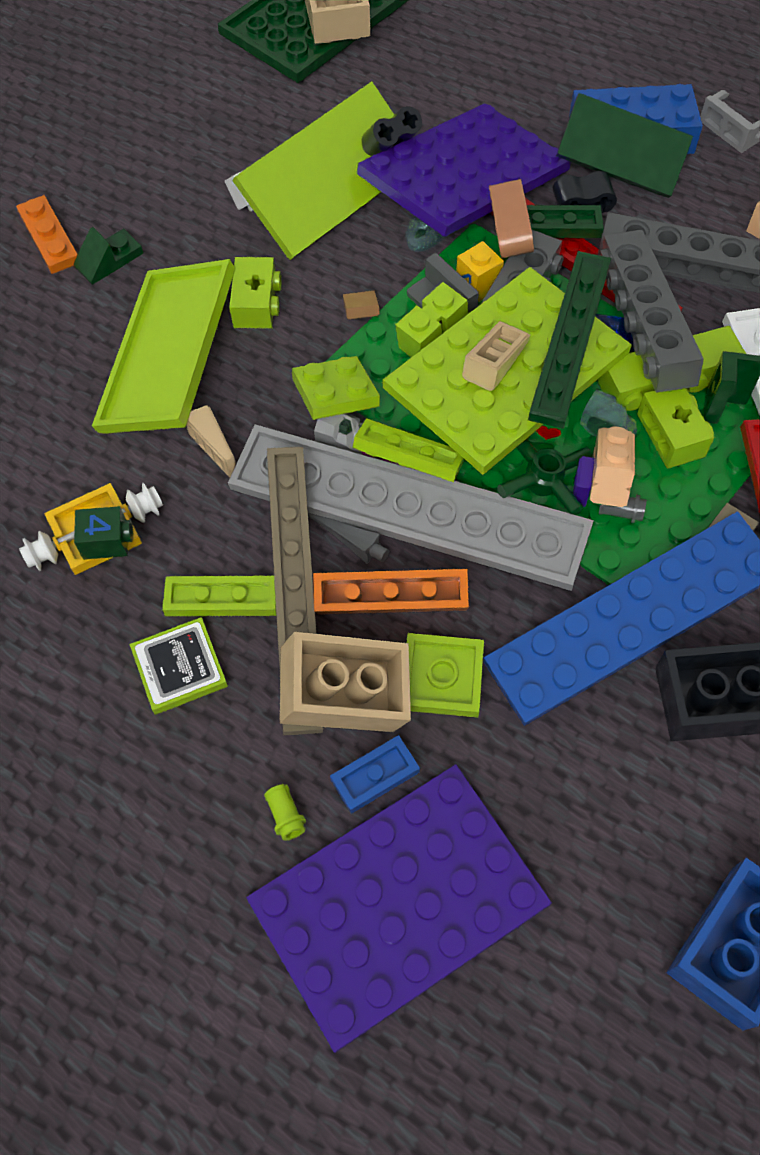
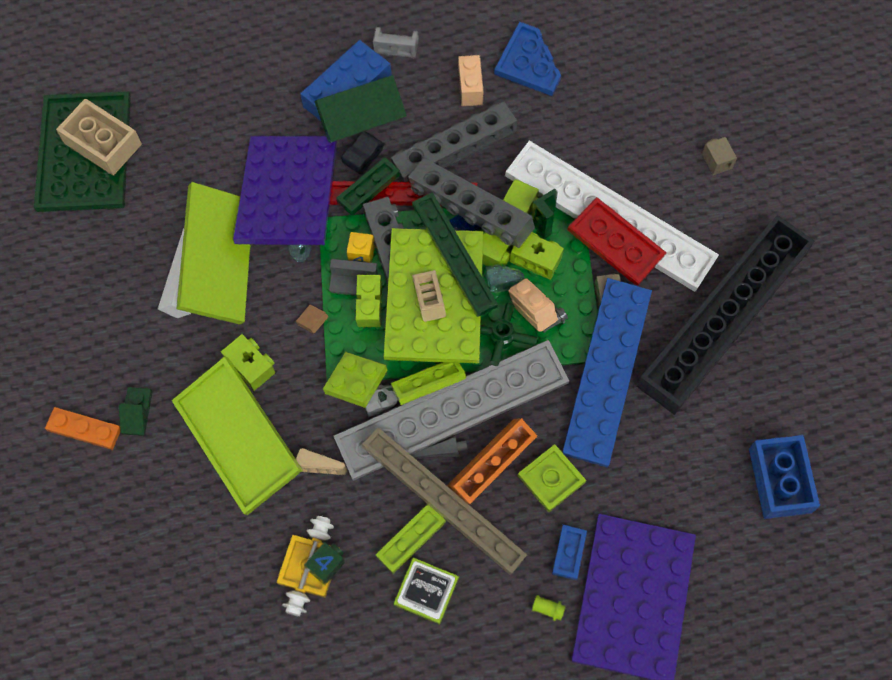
camera: 45 degrees left, 5 degrees up
(344, 682) = (520, 524): tan brick -> none
(391, 131) = (230, 203): black axle -> none
(511, 218) = (353, 206): nougat beam -> none
(583, 479) = (523, 322): dark purple tile -> none

